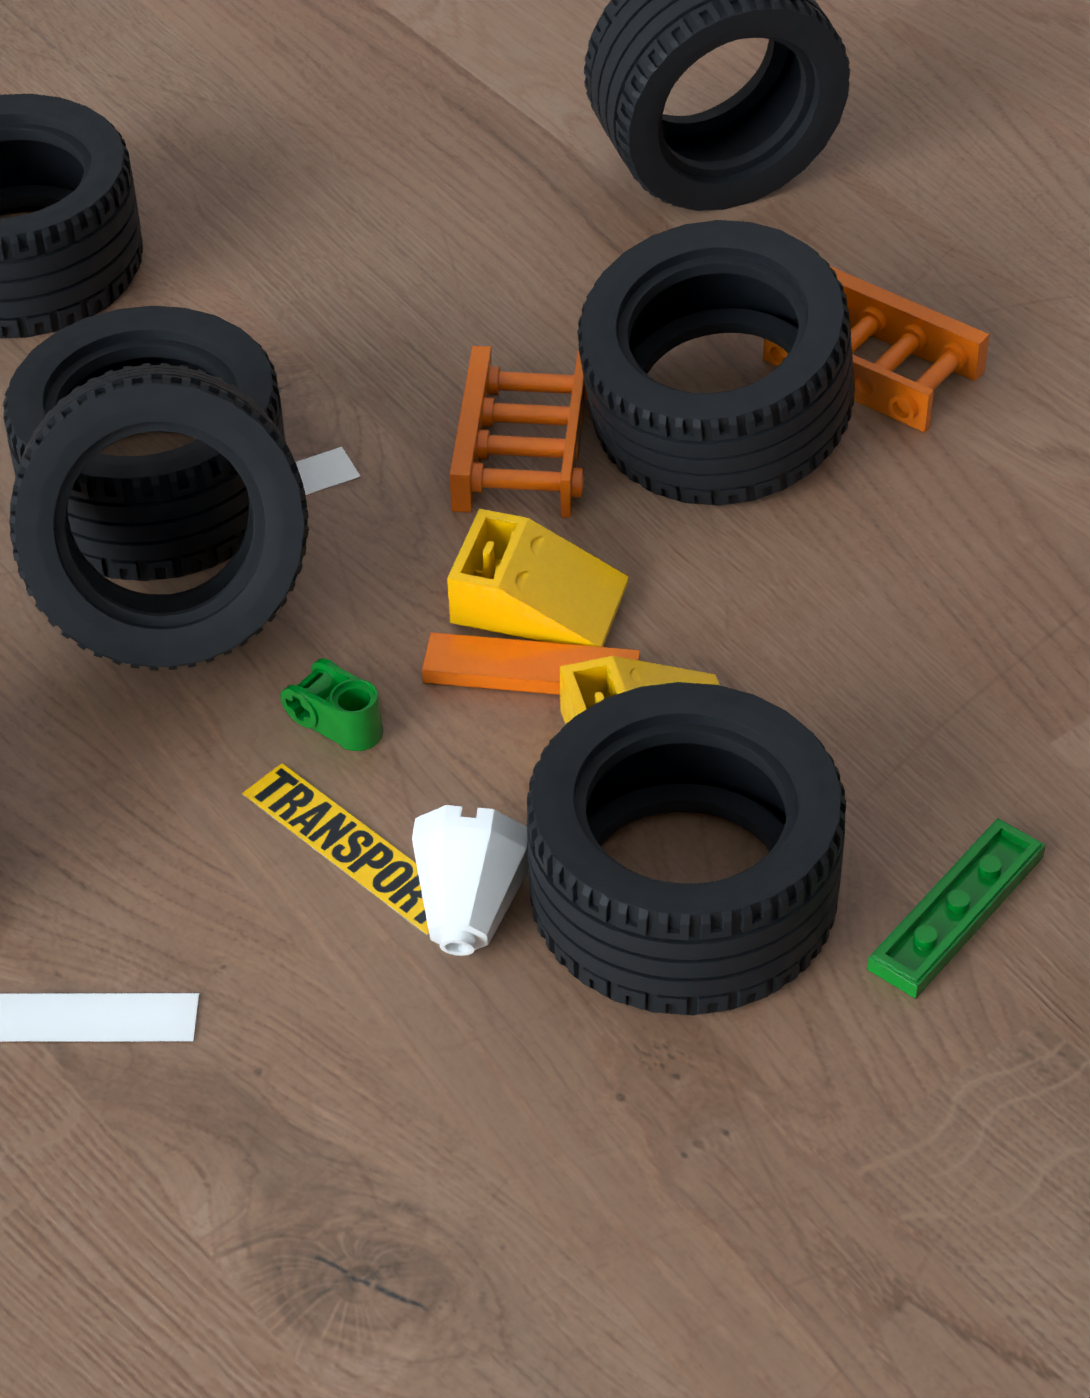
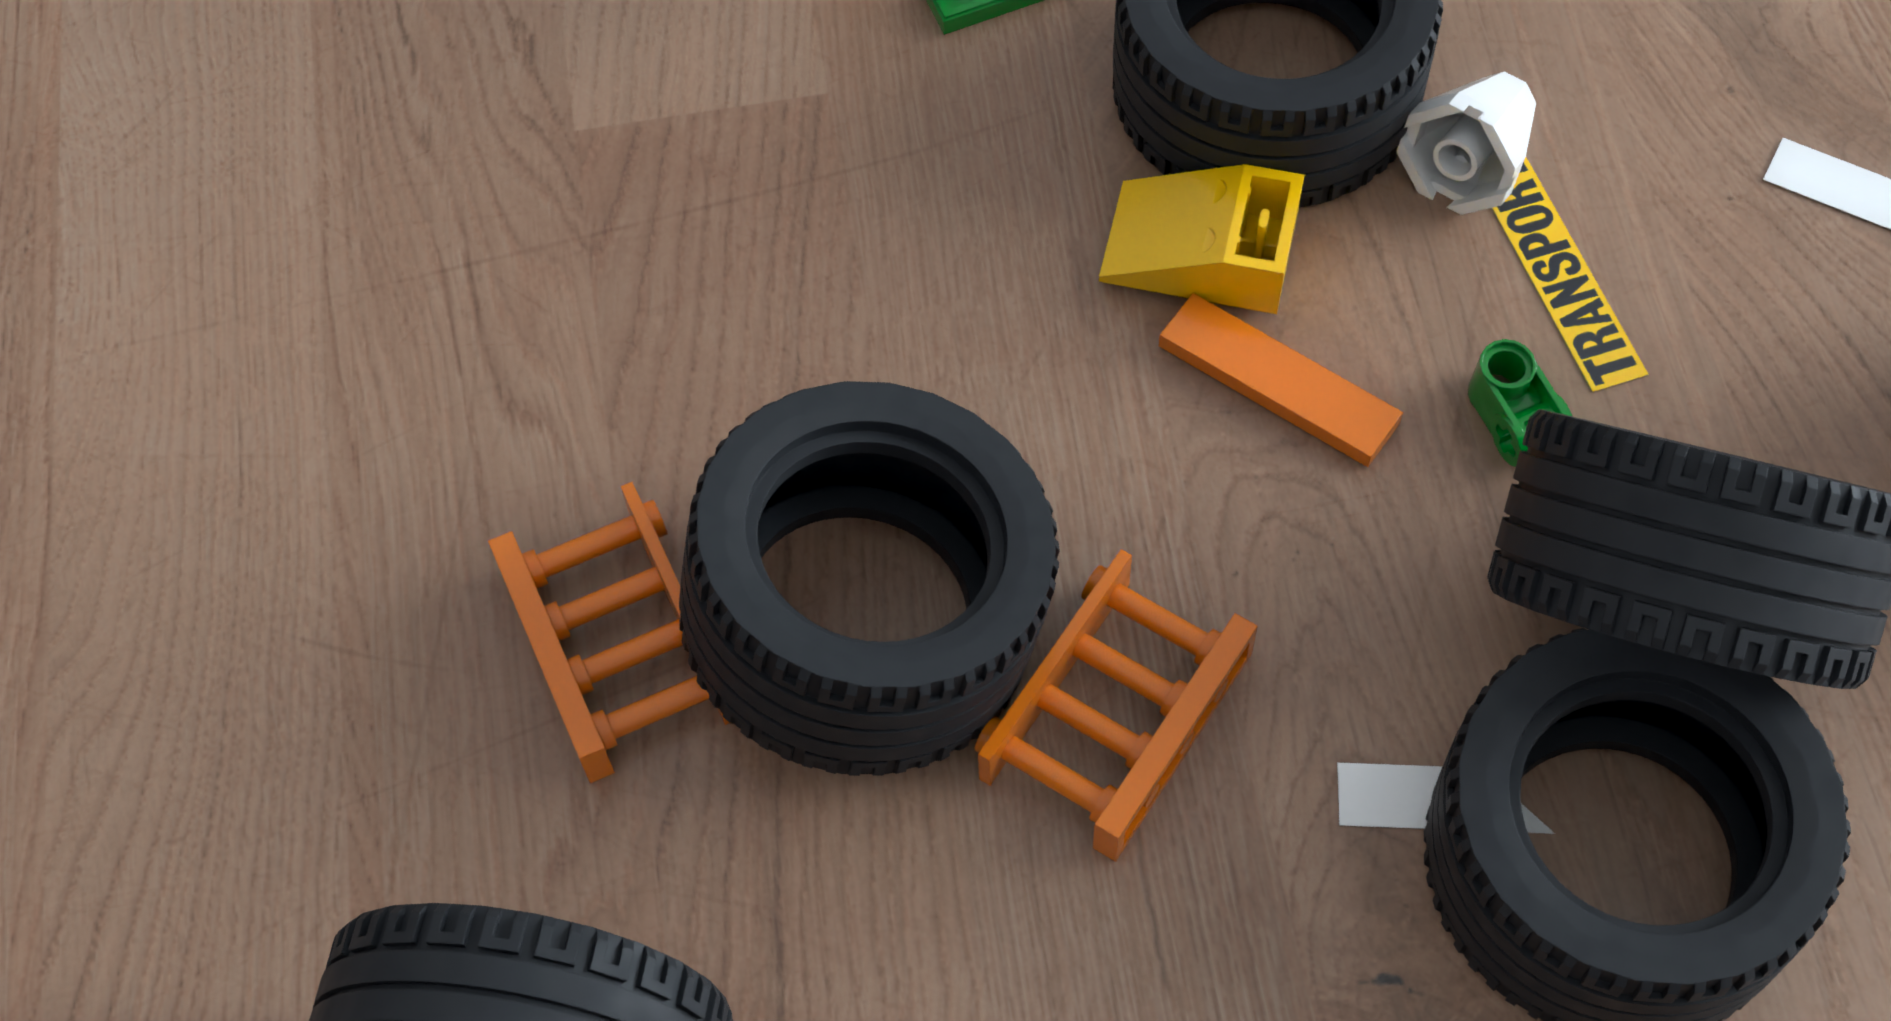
camera: 150 degrees left, 15 degrees up
(532, 583) = (1235, 451): yellow slope -> none

